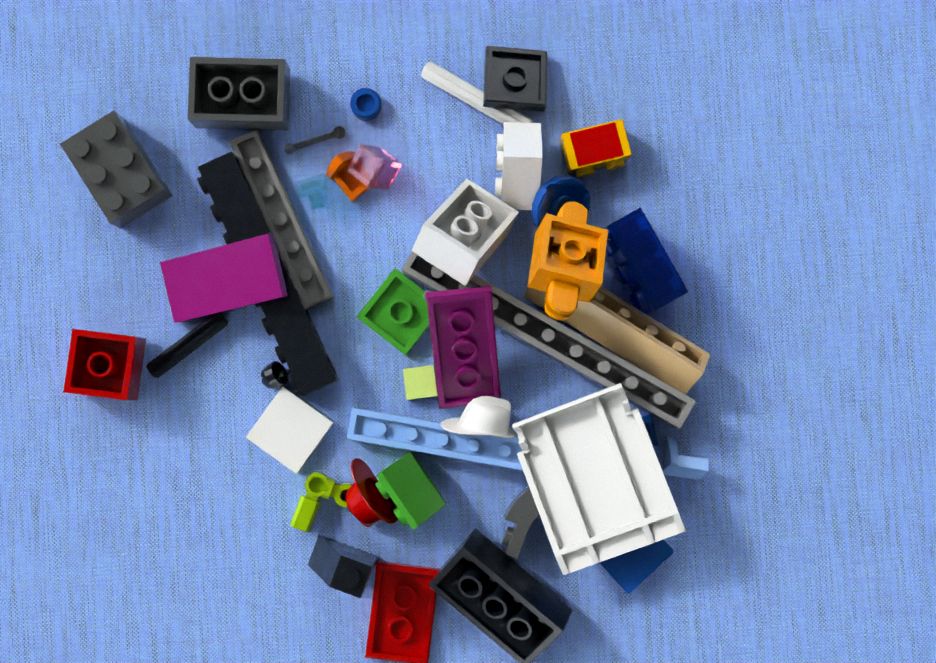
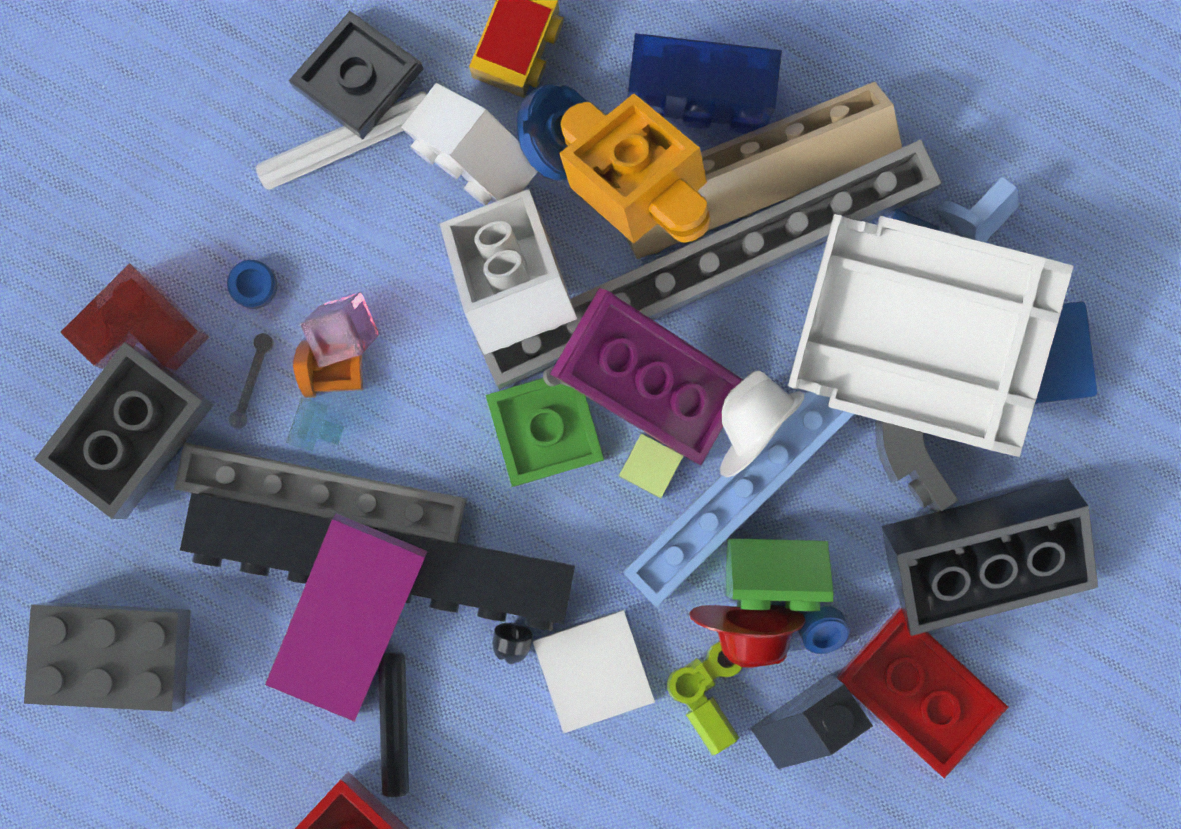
camera: 50 degrees left, 0 degrees up
(307, 55) = (133, 312): none -> clear red brick
(398, 537) = (824, 630): none -> blue tile

